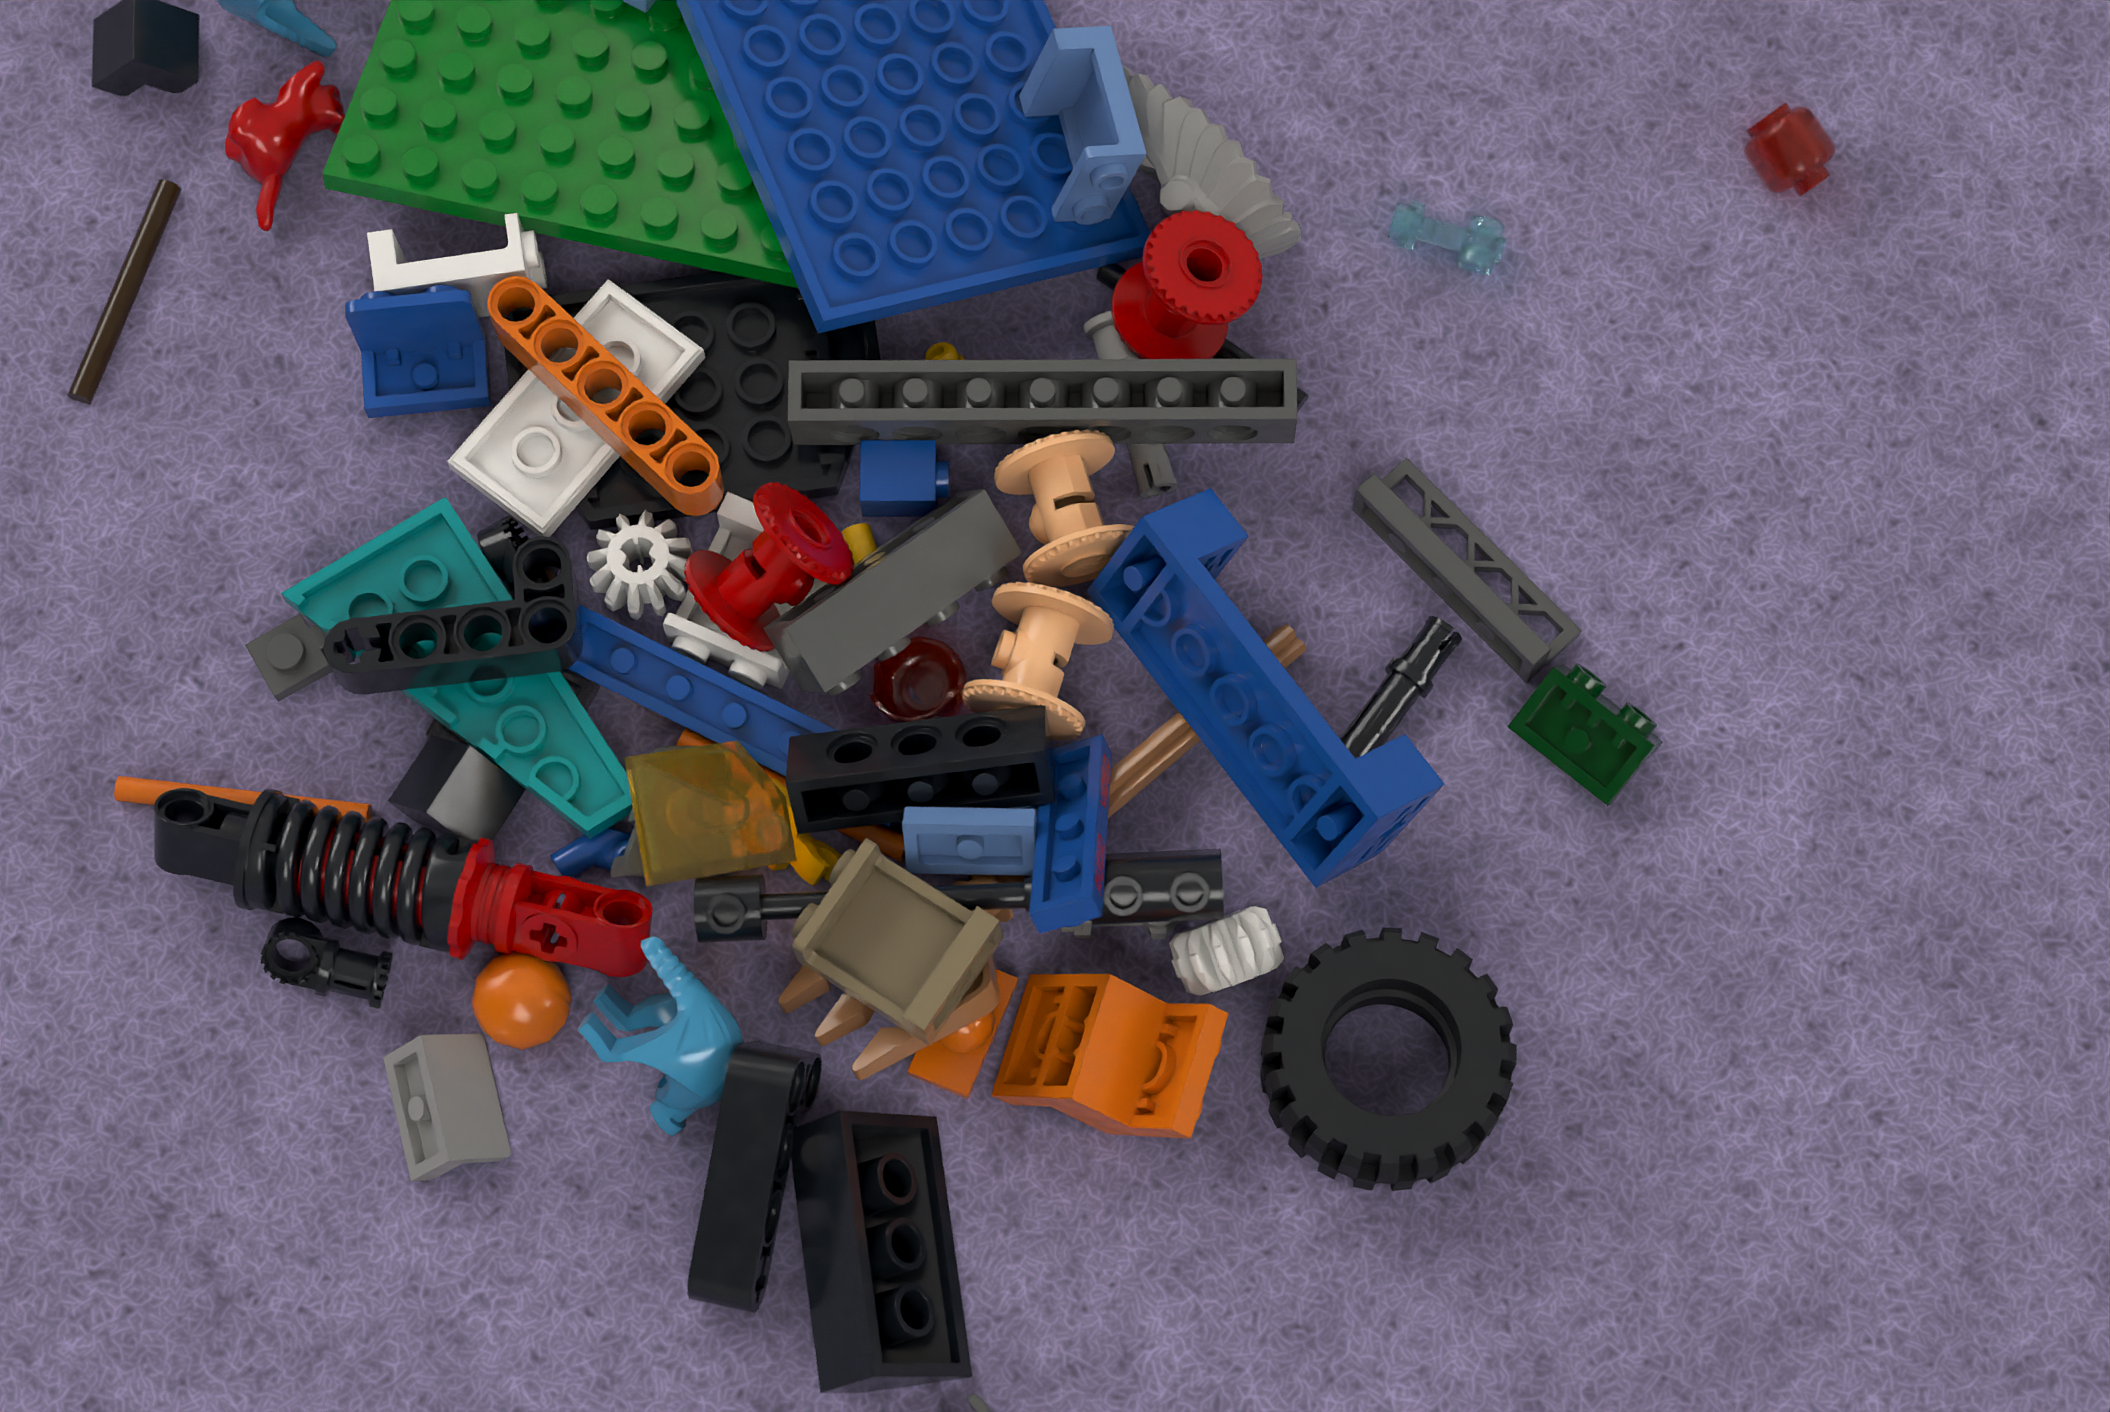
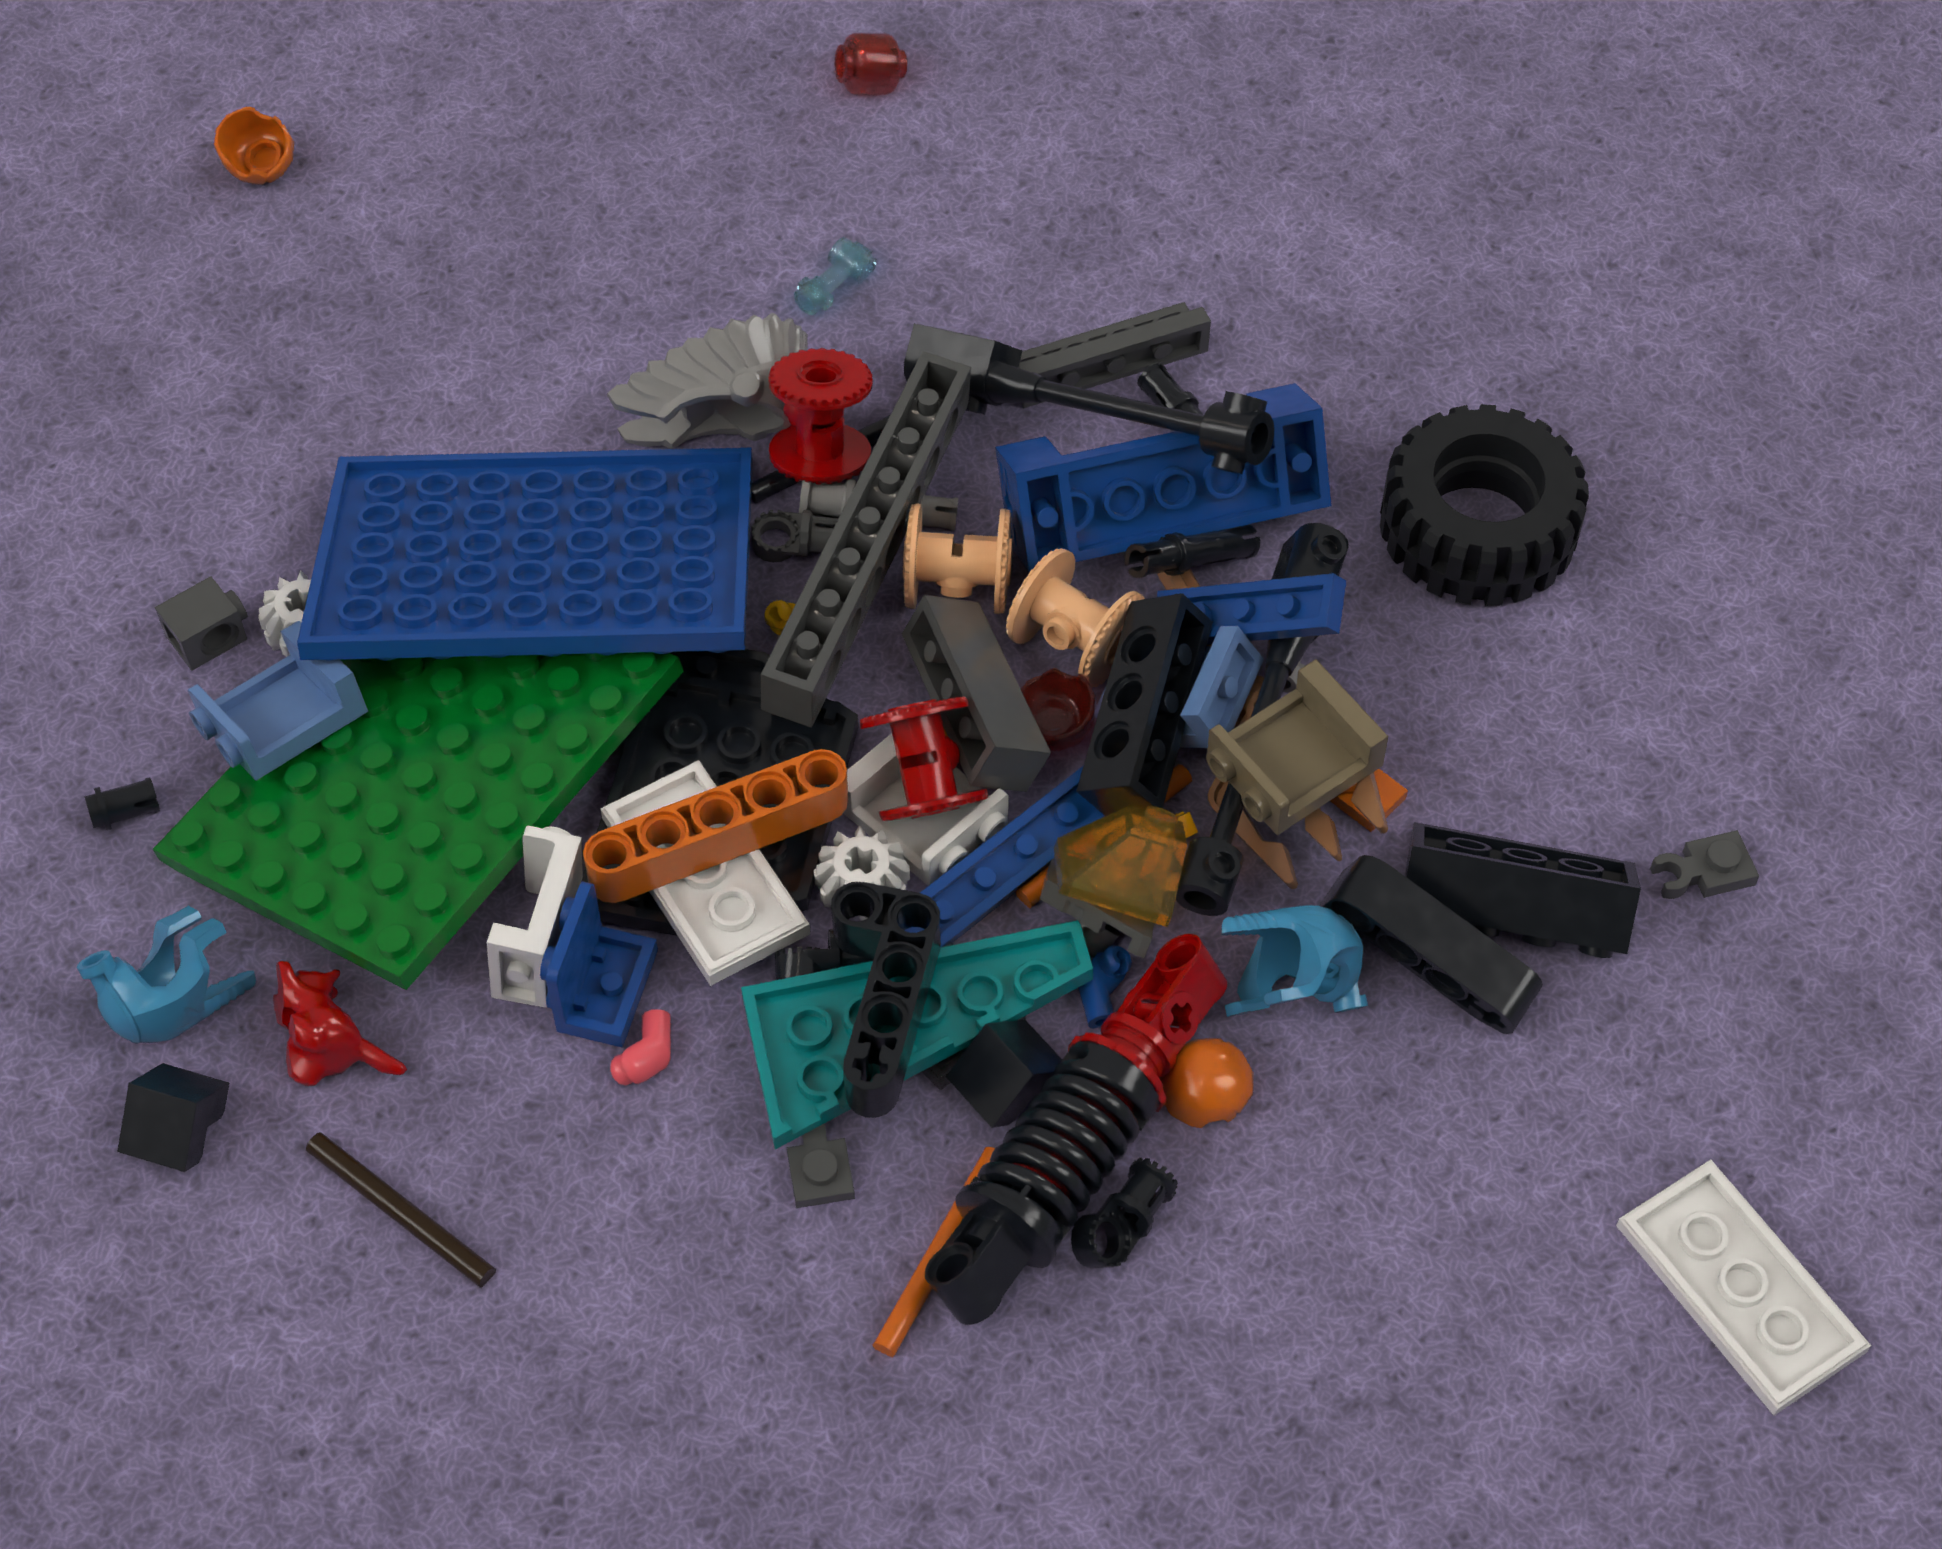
camera: 70 degrees left, 15 degrees down
(365, 446) = (649, 1054): none -> coral arm
(446, 1103) = (1283, 1169): light grey panel -> none
(901, 478) = (871, 670): blue brick -> none
(1057, 344) = (805, 531): none -> dark grey connector
(1086, 86) = (649, 424): medium blue panel -> none
(1110, 1055) = (1424, 668): orange bracket -> none
(1162, 737) = (1179, 553): none -> black pin
(1226, 951) = (1369, 575): white gear -> none
(1347, 440) = (1230, 431): none -> black bar
(1586, 731) = (1269, 320): dark green bracket -> none

